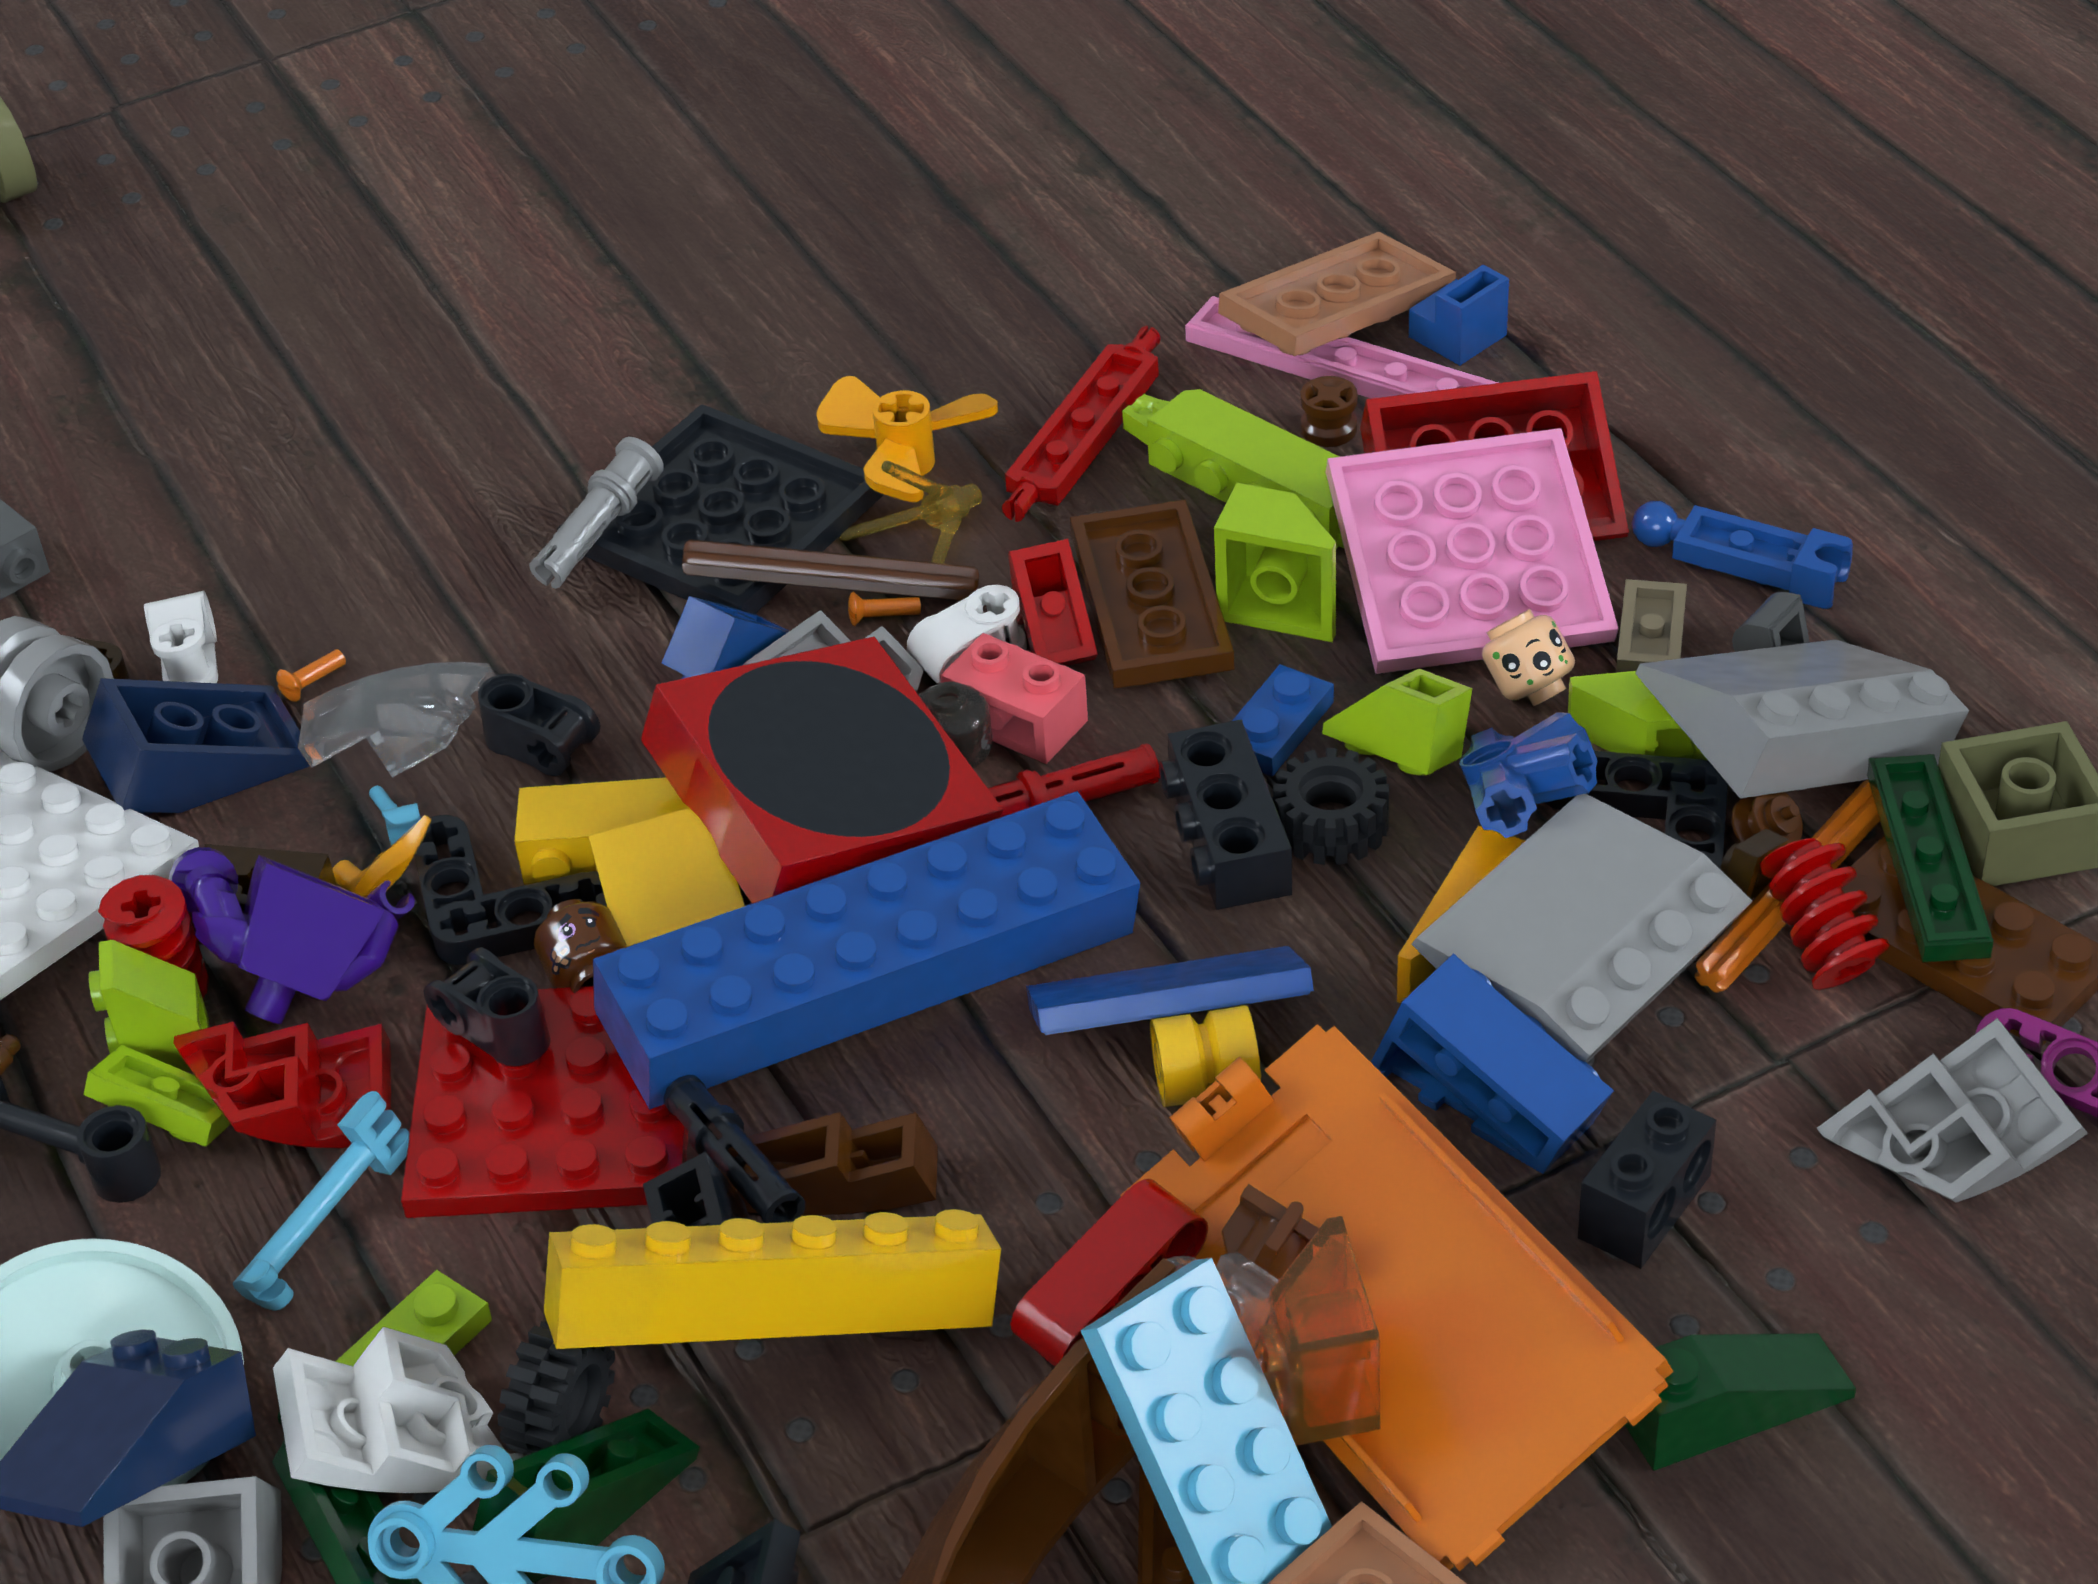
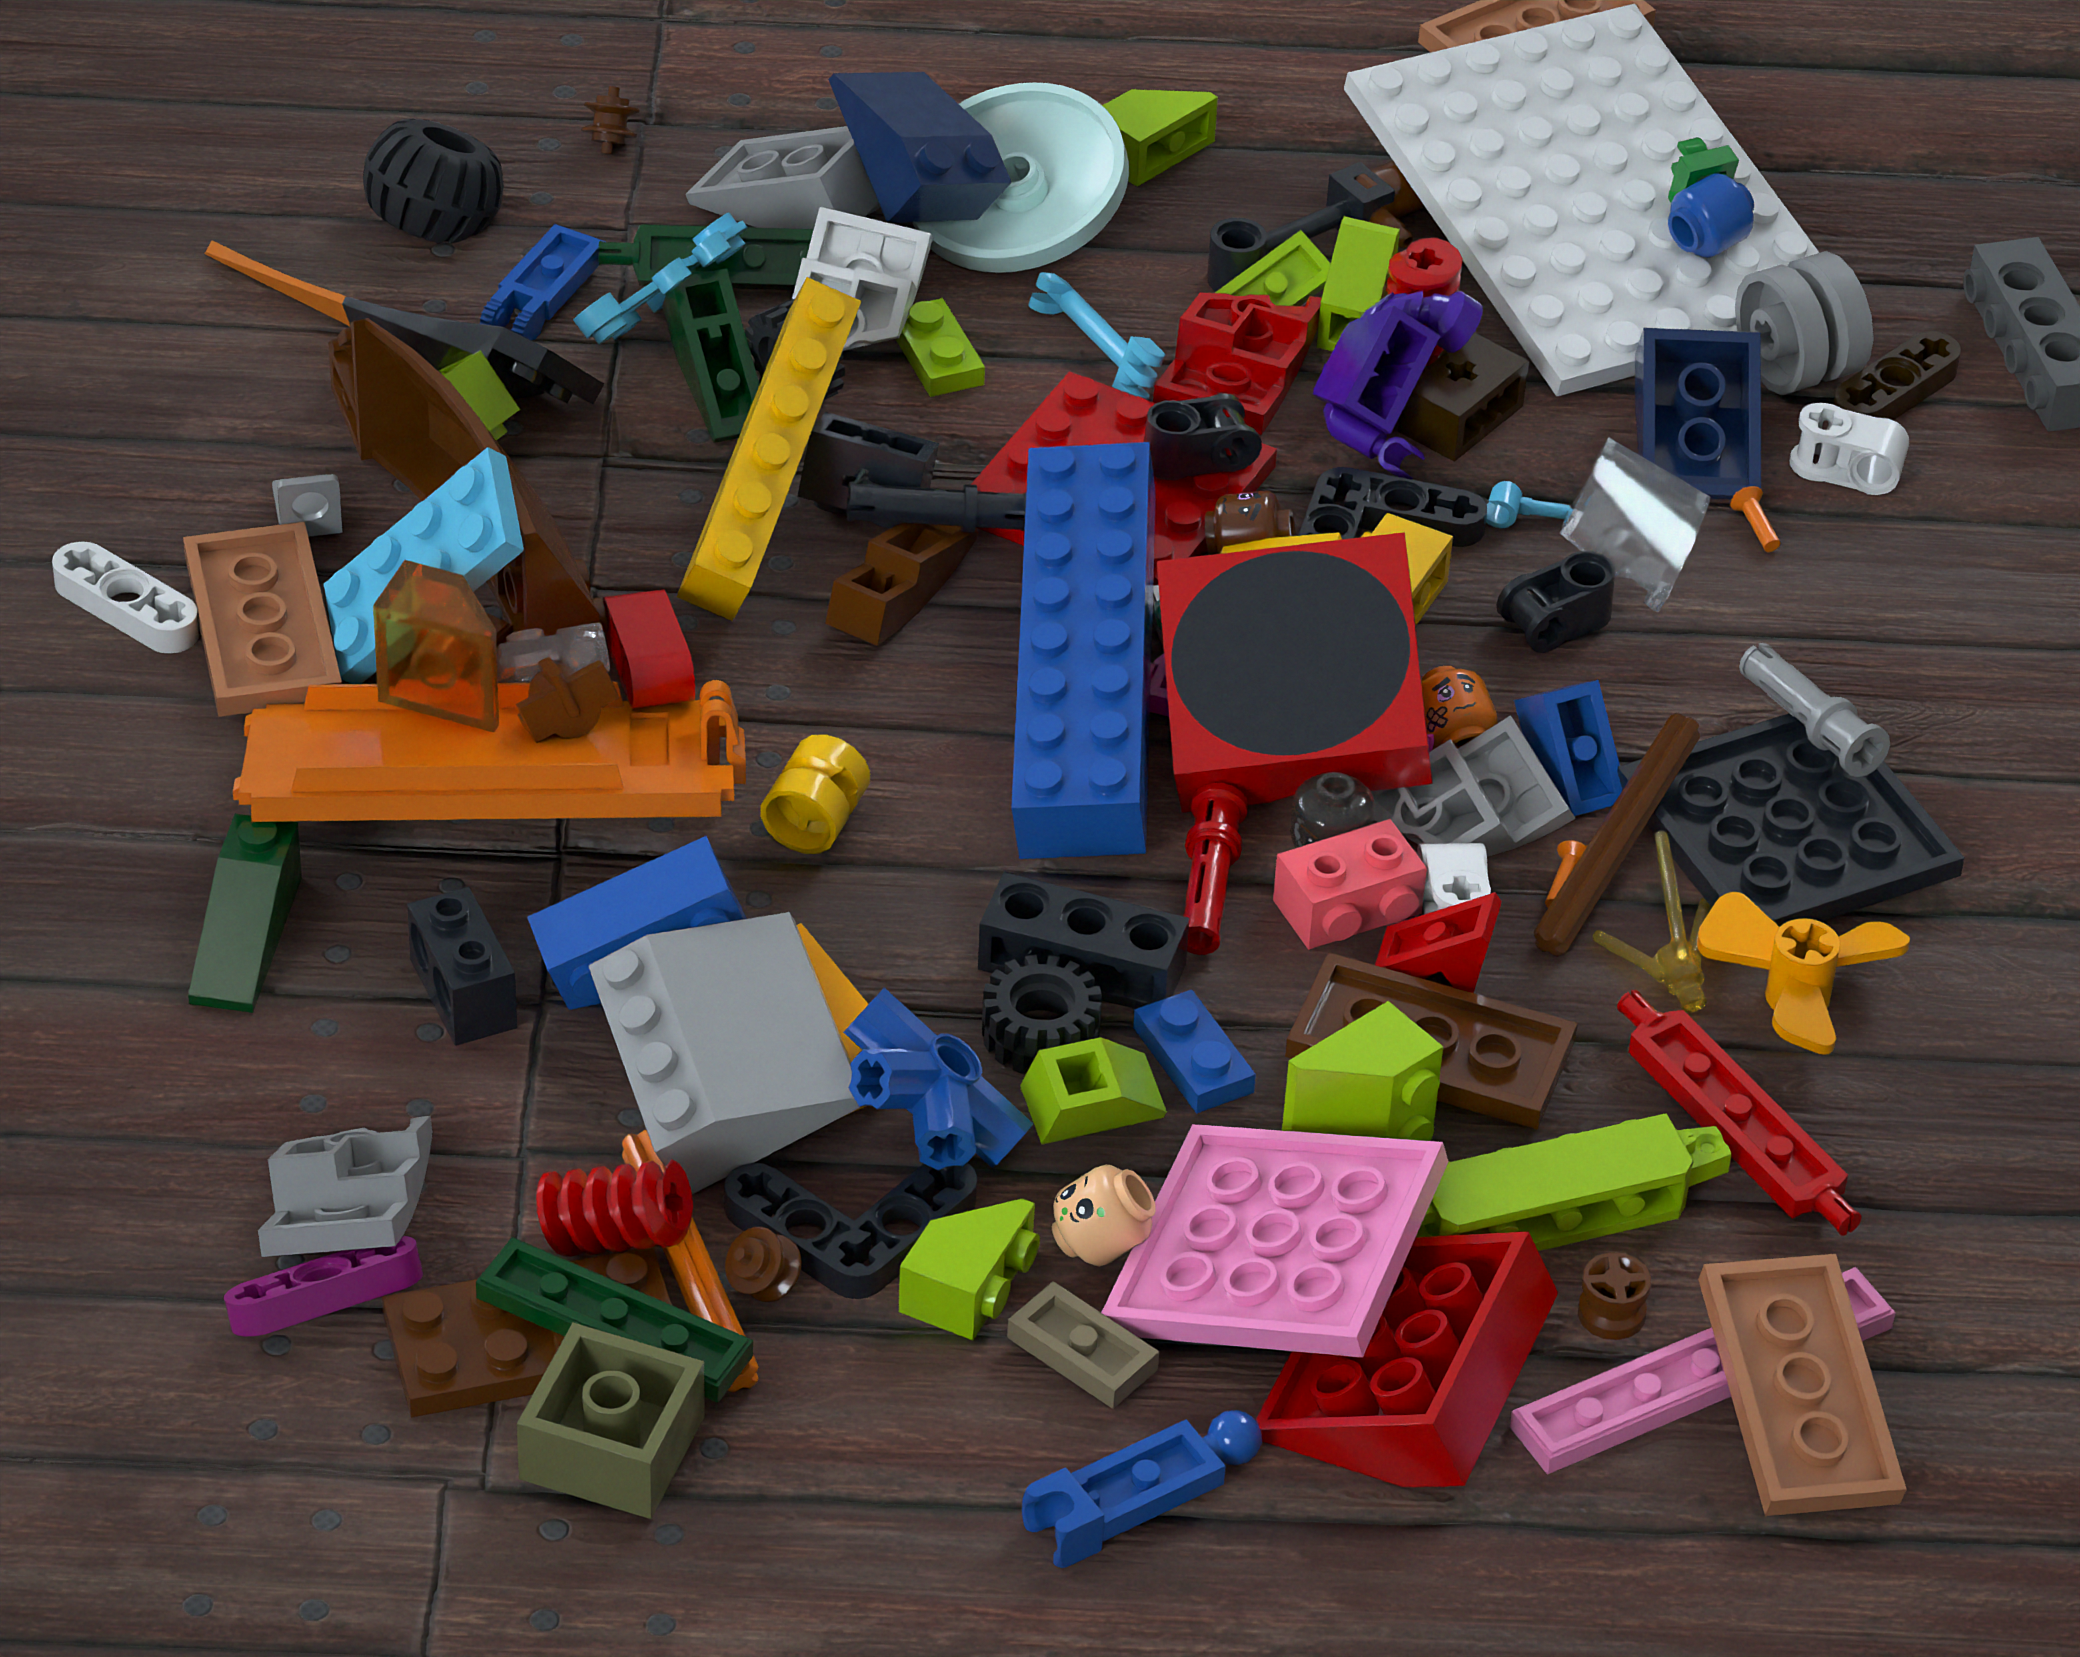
camera: 115 degrees right, 0 degrees up
(386, 866) = (1447, 465): light orange bar -> none
(1169, 990) = (900, 801): blue tile -> none
(1463, 315) = (1697, 1475): blue piece -> none
(1744, 861) = (714, 1207): dark brown plate -> none
(1774, 624) = (998, 1421): dark grey brick -> none
(1804, 712) = (858, 1327): light grey slope -> none

